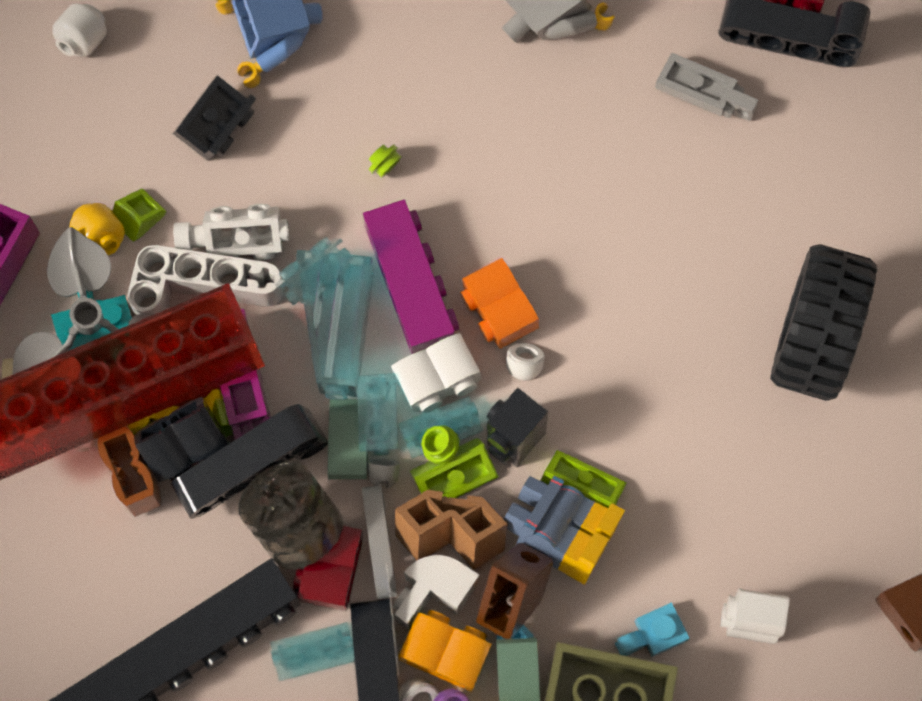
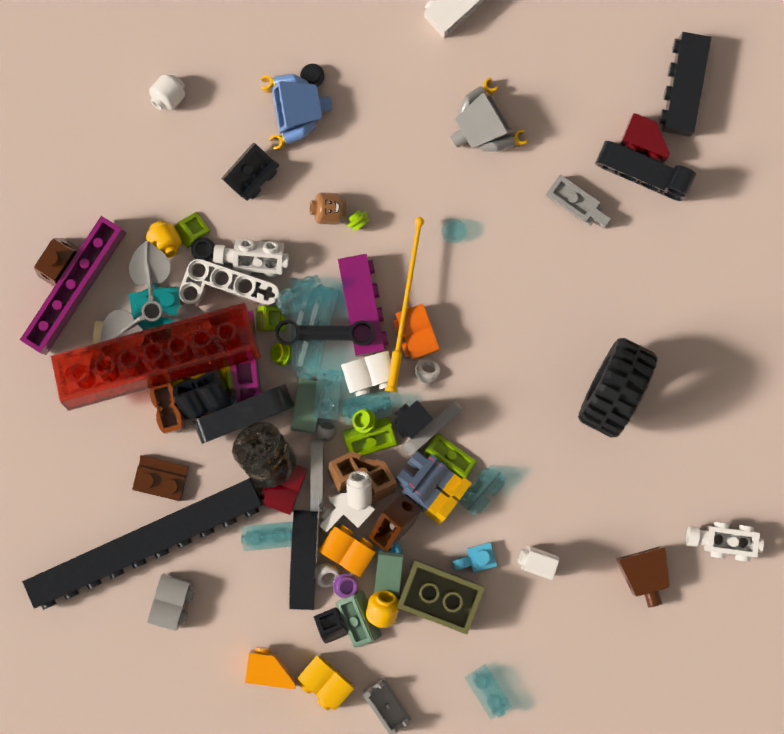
camera: 10 degrees right, 15 degrees up
(131, 587) = (160, 478): none -> reddish brown plate
(157, 233) = (203, 249): none -> black plate
(274, 321) = (268, 317): none -> lime slope
(297, 366) = (281, 354): none -> lime plate
(338, 150) = (328, 208): none -> medium nougat head
(358, 317) = (318, 332): none -> black piece
(449, 543) = (359, 490): none -> white brick
(475, 334) = (397, 354): none -> yellow piece
(529, 155) = (453, 230): none -> clear light blue plate
(548, 440) = (432, 428): none -> light grey beam
(653, 509) = (489, 481): none -> clear light blue hinge

